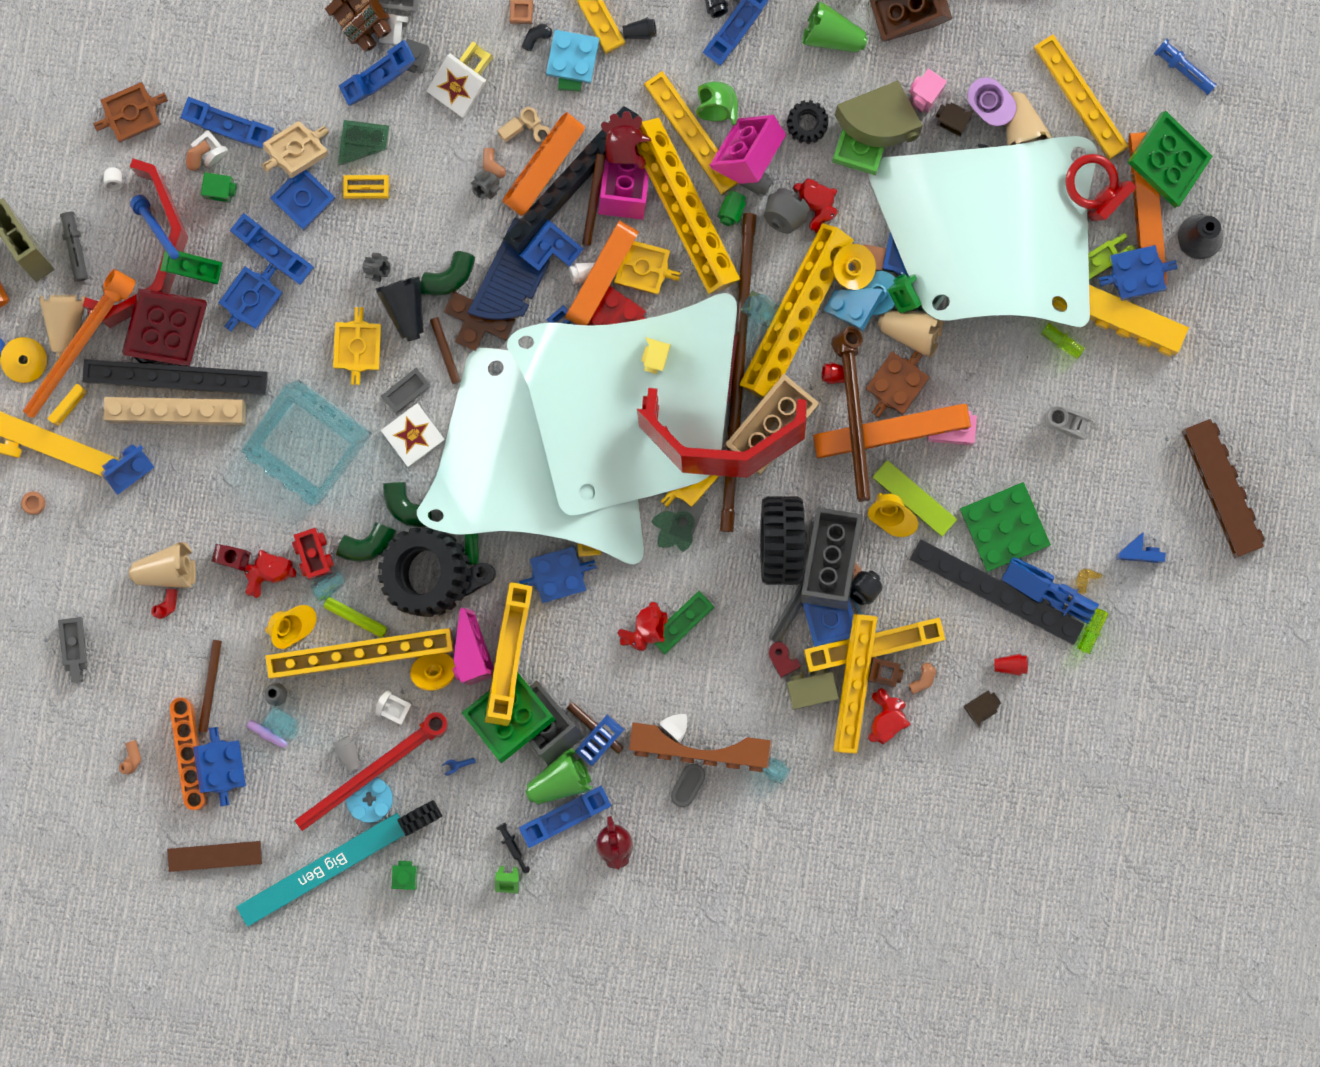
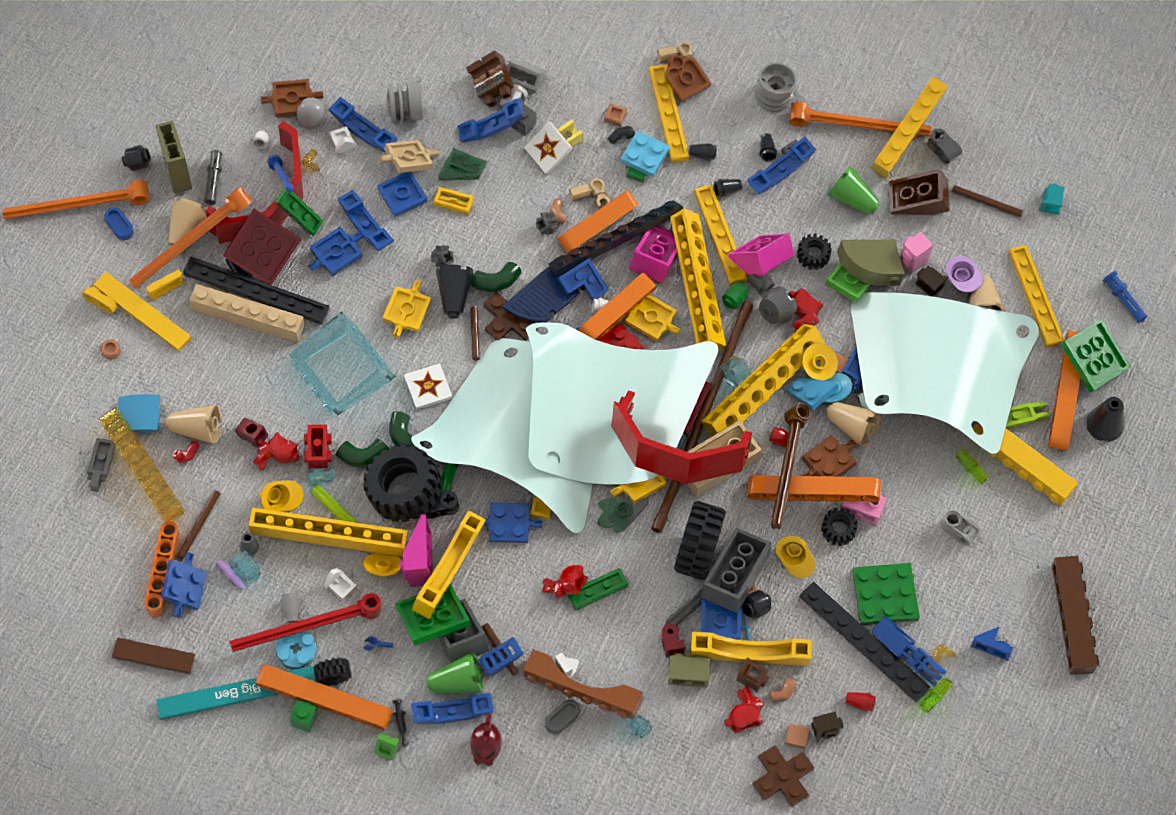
camera: 10 degrees right, 20 degrees down
(23, 372) = (142, 253): yellow dish -> none
(94, 574) = (141, 412): none -> dark azure slope
(121, 638) = (141, 465): none -> clear yellow beam
(127, 469) = (193, 340): blue bracket -> none
(132, 760) = (117, 559): nougat arm -> none
(160, 126) = (311, 112): none -> light grey hair
(177, 185) = (307, 160): none -> clear yellow animal
(194, 155) = (330, 139): nougat arm -> none
(218, 187) = (339, 167): green brick -> none
(267, 79) = (405, 101): none -> light grey wheel
(406, 390) = (433, 353): dark grey tile -> none
(419, 849) = (324, 697): none -> orange beam
(594, 197) = (628, 257): reddish brown bar -> none
(623, 138) = (665, 217): dark red piece -> none
(655, 355) = (641, 375): light yellow window -> none
(681, 68) = (726, 186): none -> black cone
(717, 102) = (750, 210): bright green piece -> none
(855, 683) = (726, 674): yellow tile -> none
(904, 294) = (854, 389): green bracket -> none
(914, 498) = (823, 557): lime tile -> none
(945, 459) = (834, 536): none -> black tyre
(950, 777) = (783, 776): none -> reddish brown plate
(952, 726) = (797, 736): none -> nougat tile
(1108, 198) = (1037, 368): red tile -> none
(1138, 273) = (1047, 429): blue plate -> none

